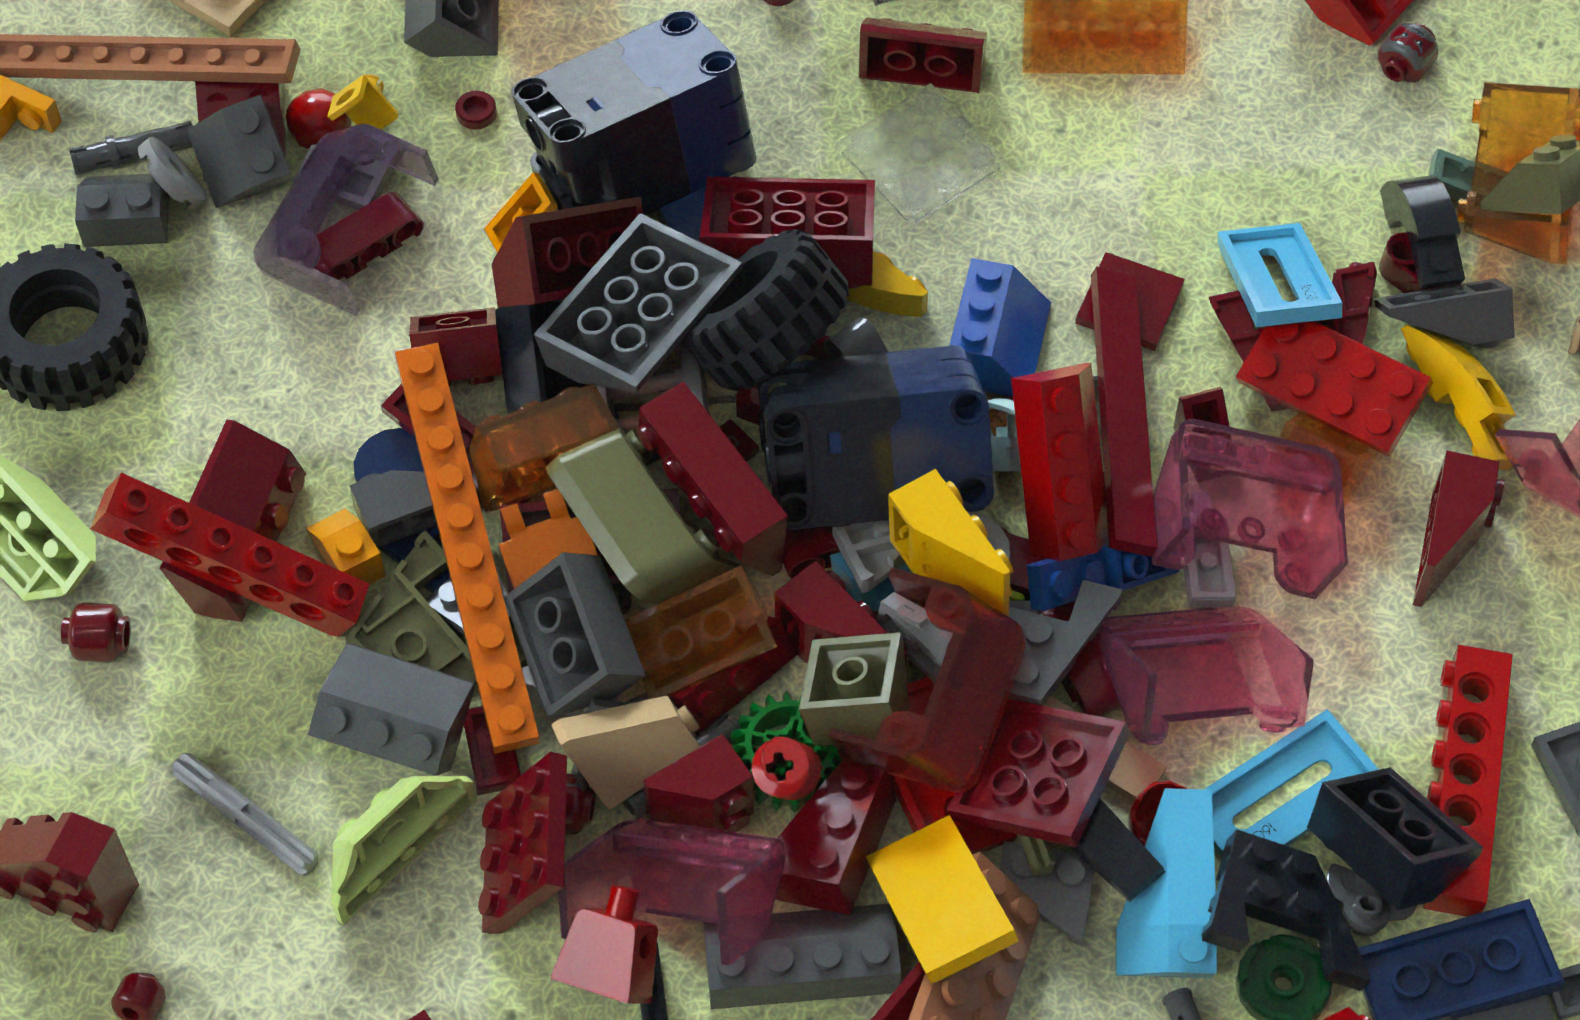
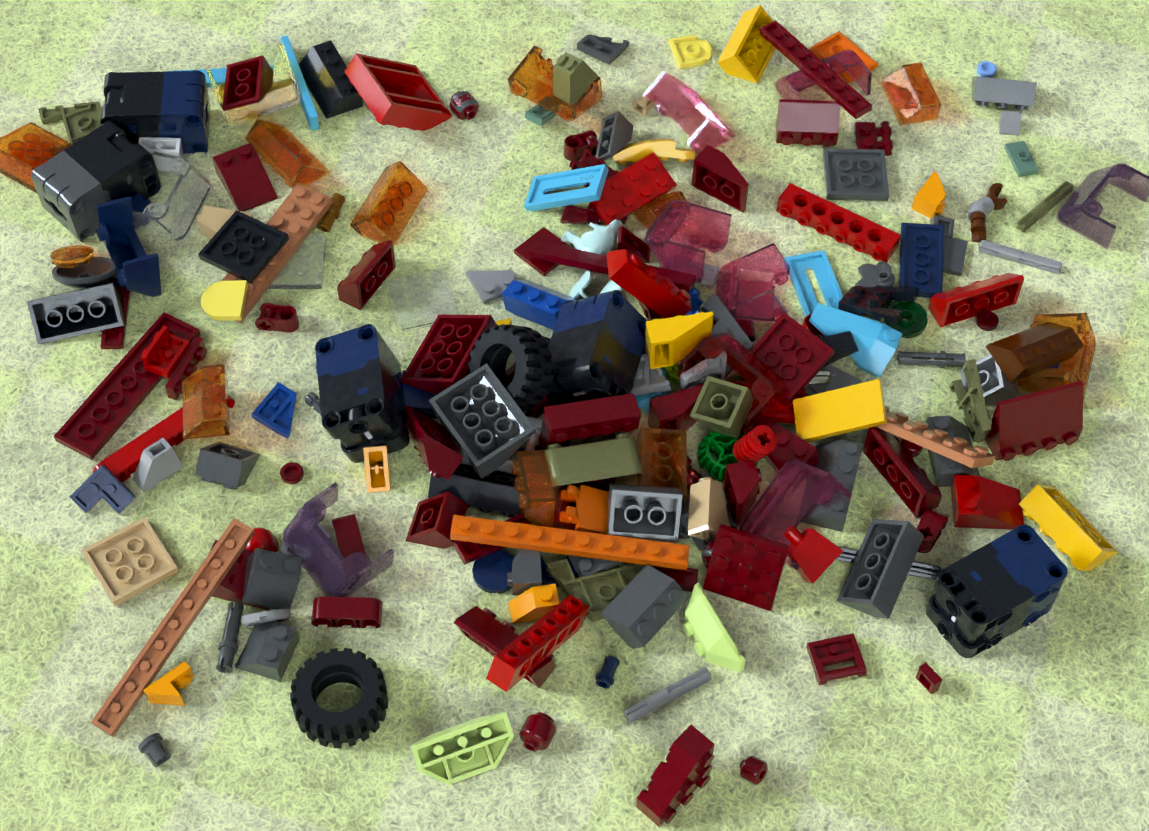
camera: 70 degrees left, 5 degrees down
(232, 283) = (347, 611): none -> dark red beam
(255, 703) = (605, 677): none -> dark blue pin
(364, 103) = (266, 516): yellow bracket -> none
(583, 30) = (277, 410): none -> blue wing
(1013, 241) = (490, 284): none -> light grey wing
(1179, 370) = (597, 241): none -> light aqua piece
(1392, 836) = (860, 253): black slope -> none
(1431, 226) = (562, 124): black arch -> none

